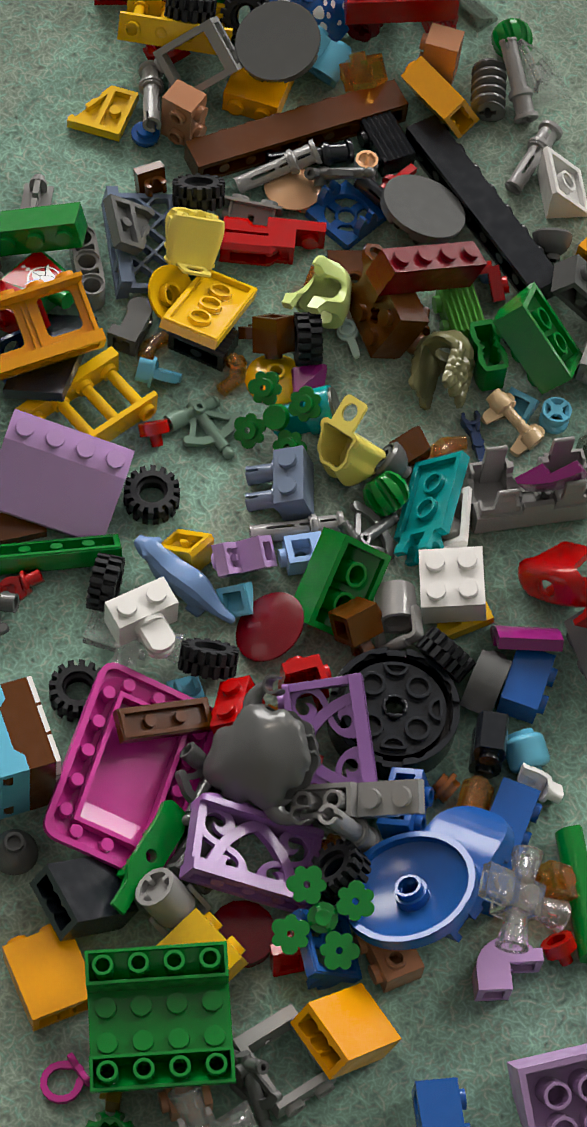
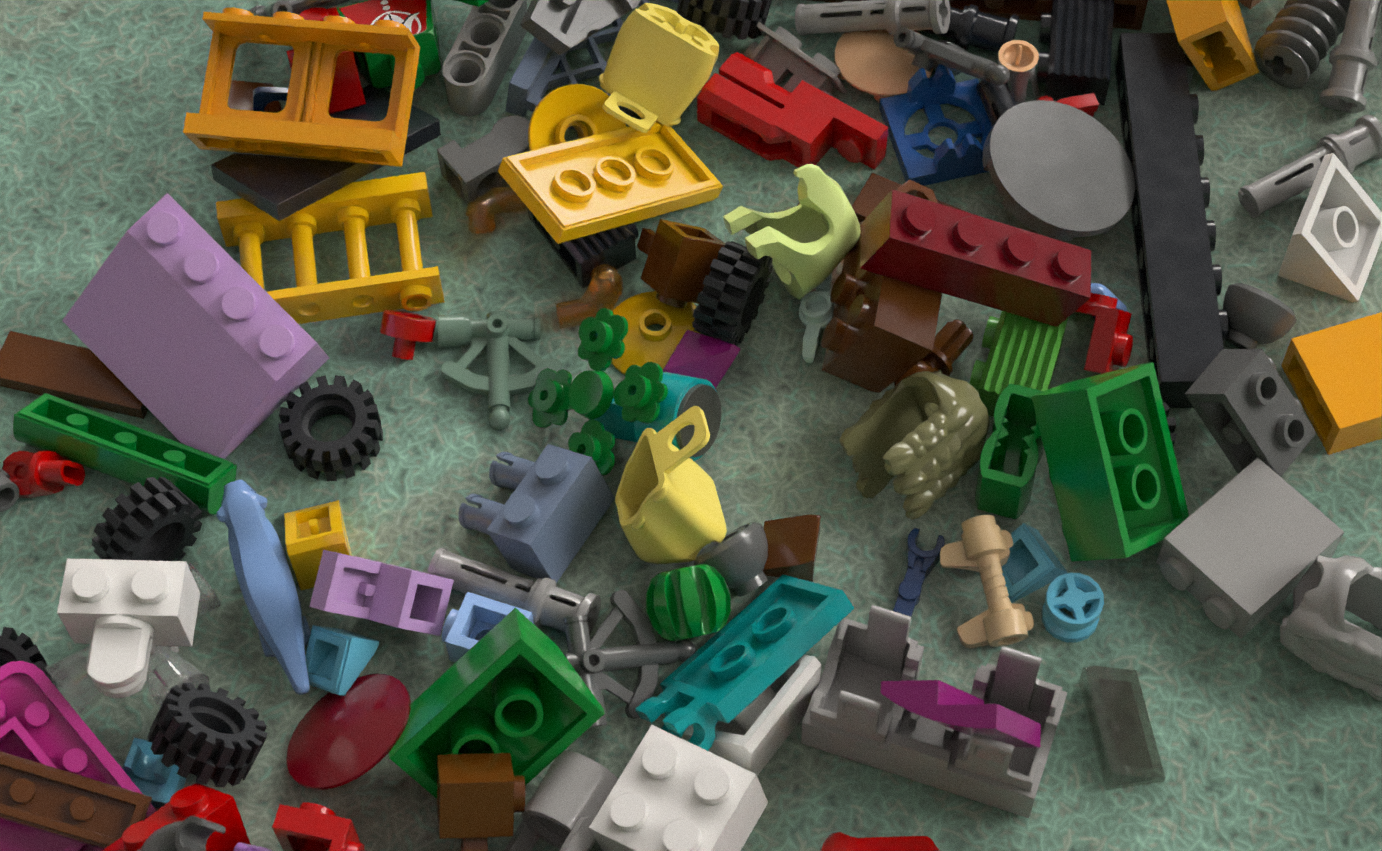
camera: 40 degrees right, 0 degrees up
(149, 370) = (469, 239): medium azure piece -> none
(448, 444) = (854, 569): clear orange arm -> none

